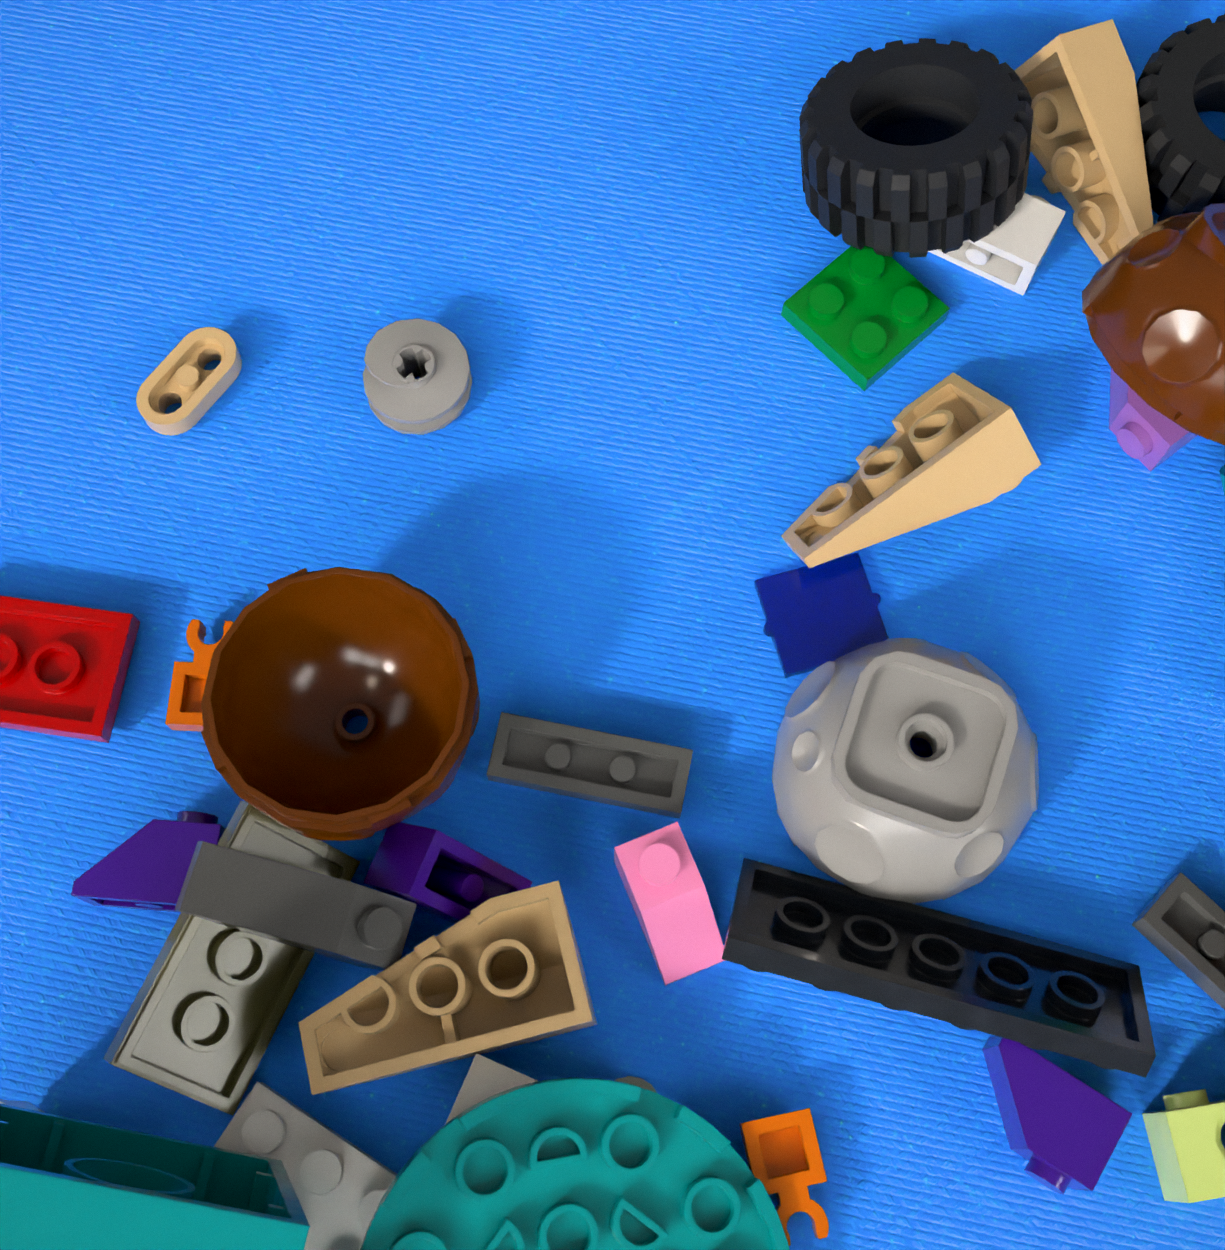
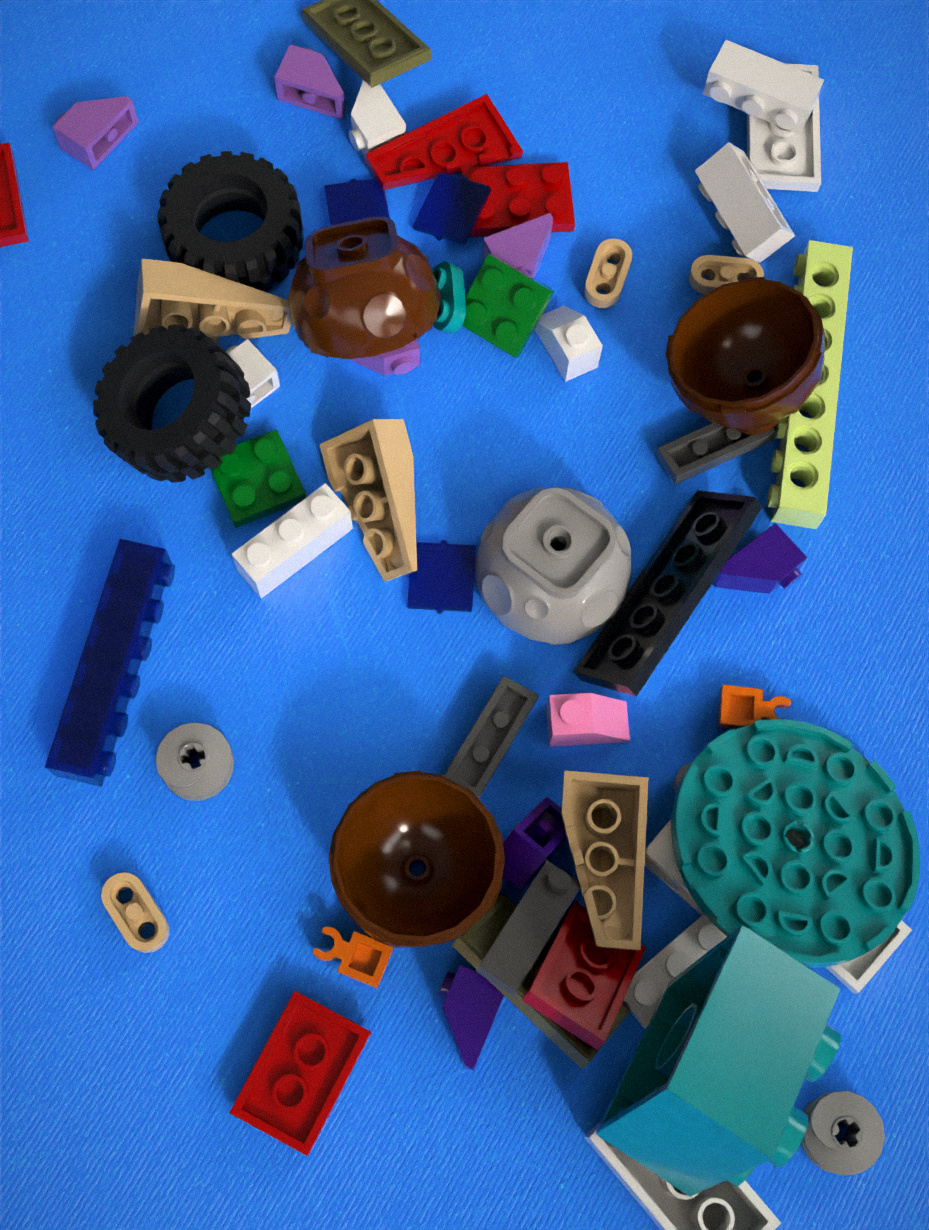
camera: 75 degrees left, 0 degrees up
(230, 1016) = (581, 982): none -> red plate
(520, 225) = (110, 664): none -> clear blue brick
(785, 385) = (293, 540): none -> white brick

